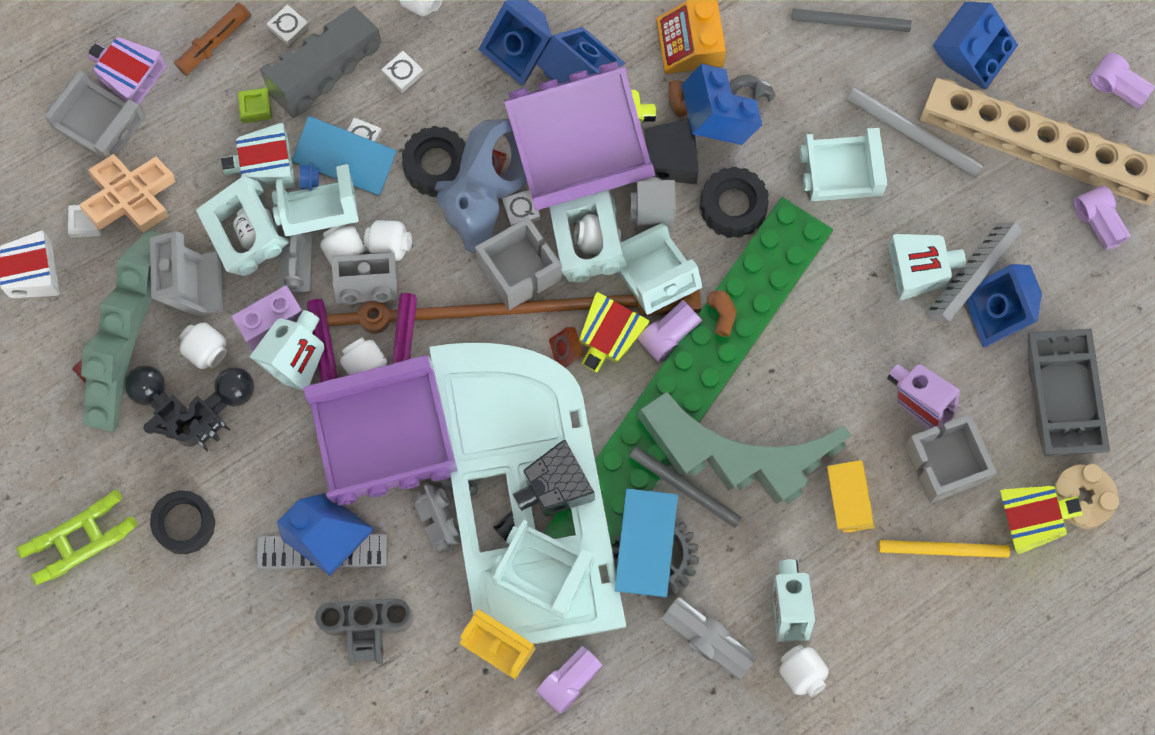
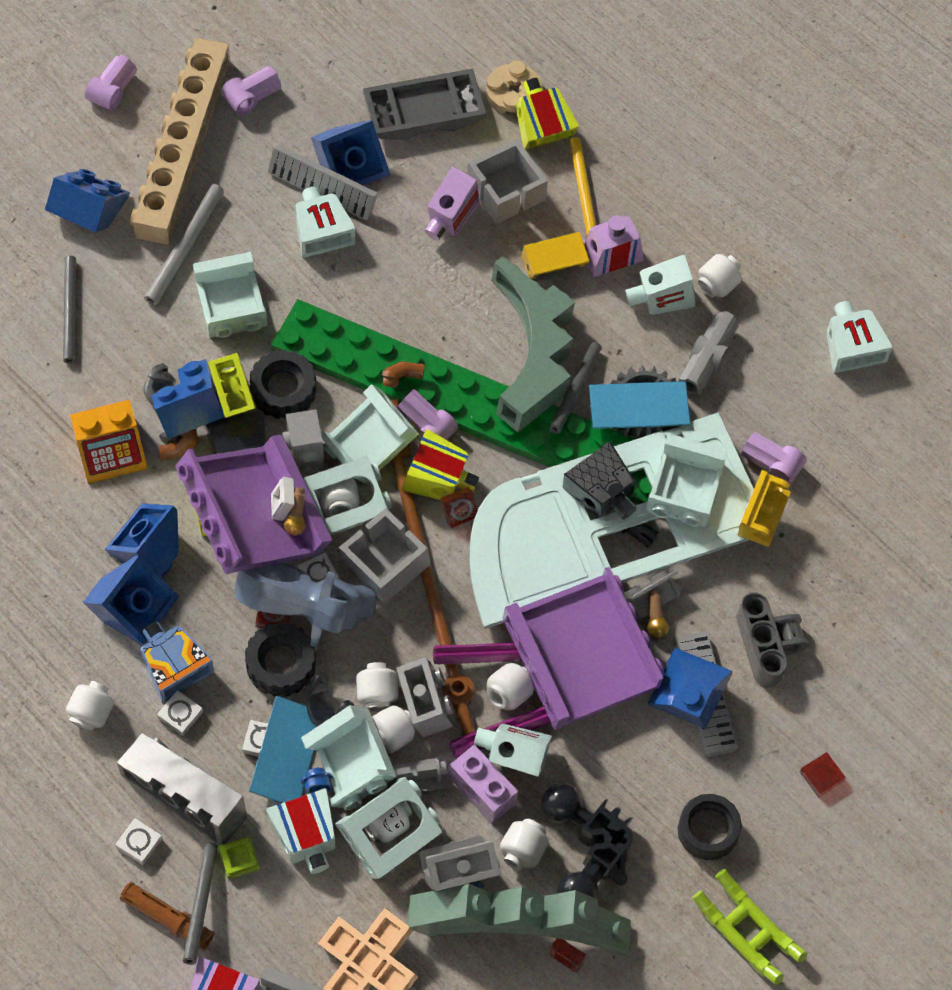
camera: 105 degrees left, 10 degrees down
(209, 61) = (200, 904): none -> dark grey piece
(214, 648) = (822, 774): none -> clear red tile
(379, 191) = (318, 701): none -> black helmet
(402, 517) = (657, 624): none -> piece
(452, 68) = (173, 660): none -> torso
(560, 178) = (295, 521): none -> piece
(584, 167) = (282, 498): none -> white tile
(718, 142) = (232, 385): none -> neon yellow torso
(854, 561) = (613, 246): none -> lavender torso

